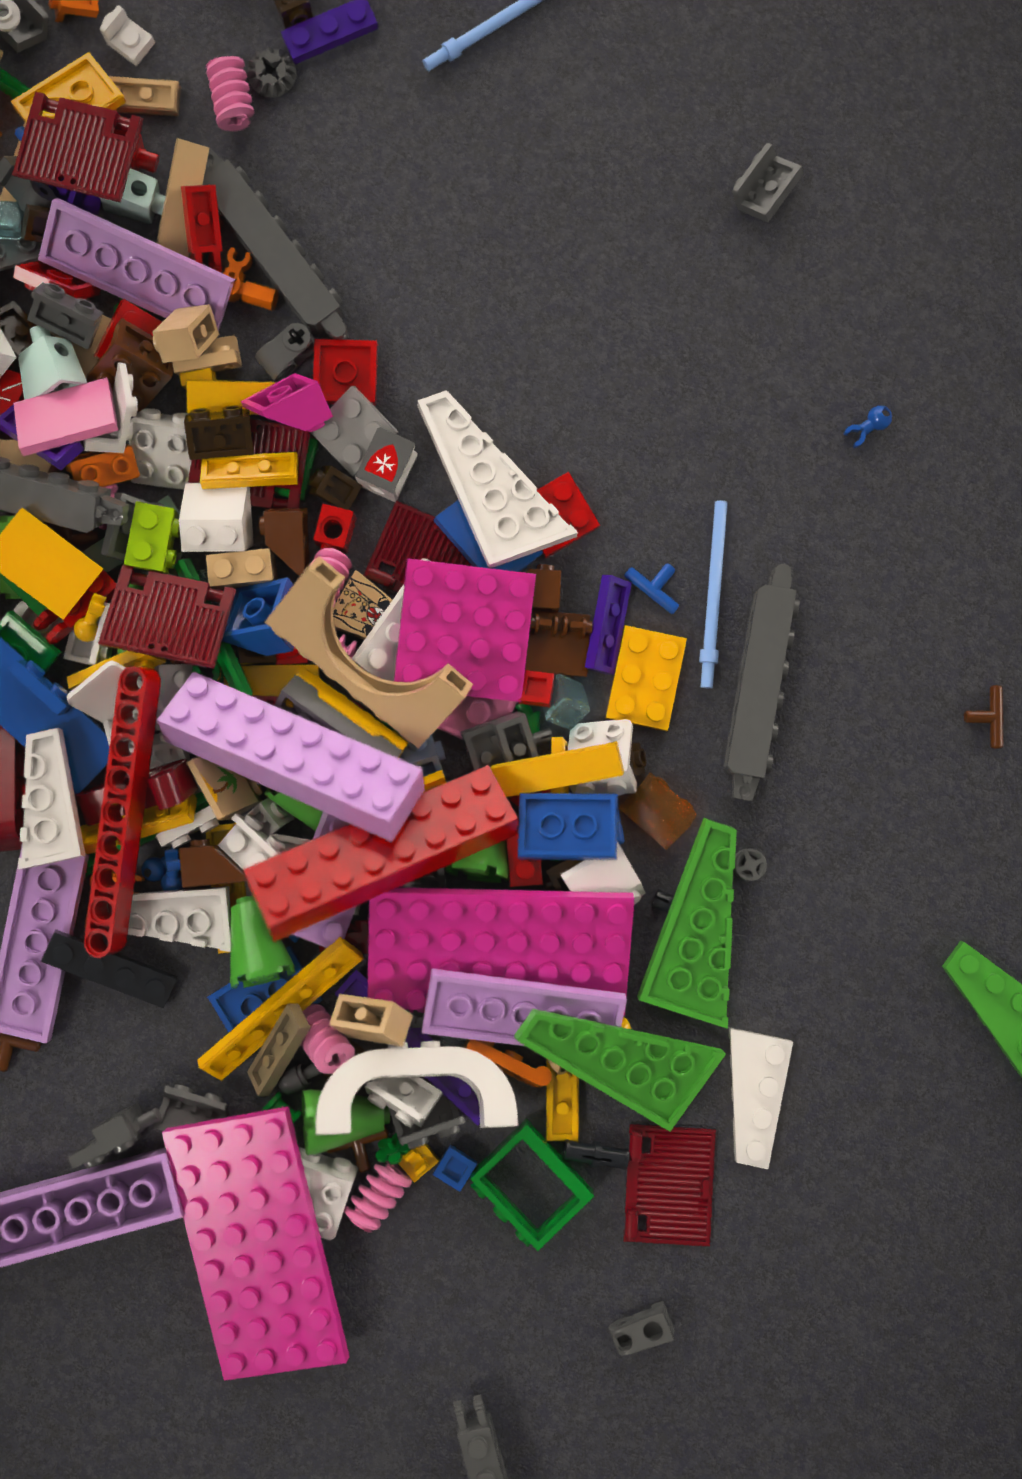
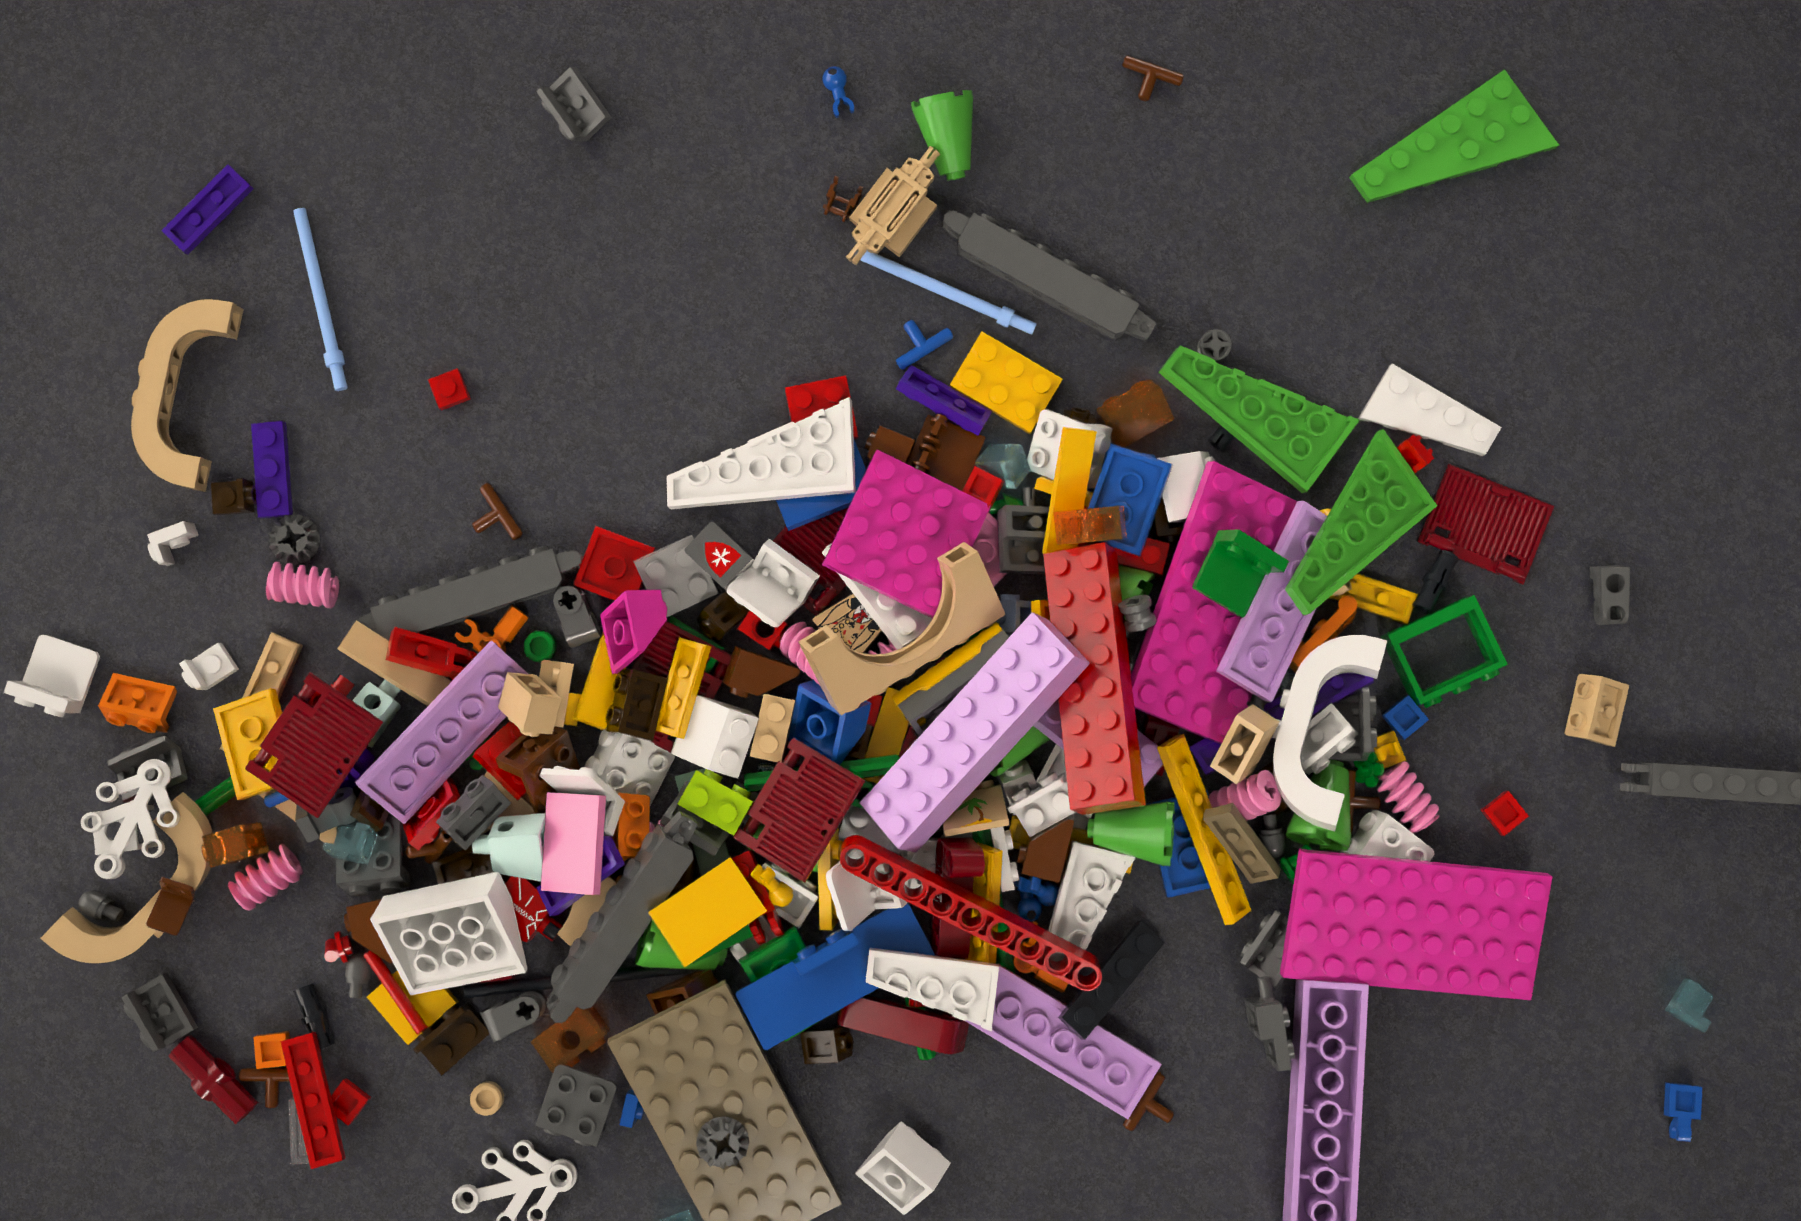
camera: 65 degrees left, 0 degrees up
(22, 295) = (432, 850): none -> reddish brown piece
(248, 330) = (540, 646): none -> green tile
(359, 249) = (498, 513): none -> reddish brown piece
(374, 522) = (773, 584): none -> white bracket
(395, 1295) = (1504, 813): none -> red plate
(460, 164) = (449, 389): none -> red plate
(460, 873) = (1137, 613): none -> dark grey wheel
(525, 1353) = (1596, 709): none -> tan bracket
(529, 799) = (1090, 525): none -> clear orange brick
(533, 954) = (1236, 570): none -> green bracket
(713, 1093) = (1415, 453): none -> red tile
(765, 475) = (851, 204): none -> reddish brown piece
(773, 515) = (894, 208): none -> tan piece
(867, 539) = (947, 127): none -> bright green cone

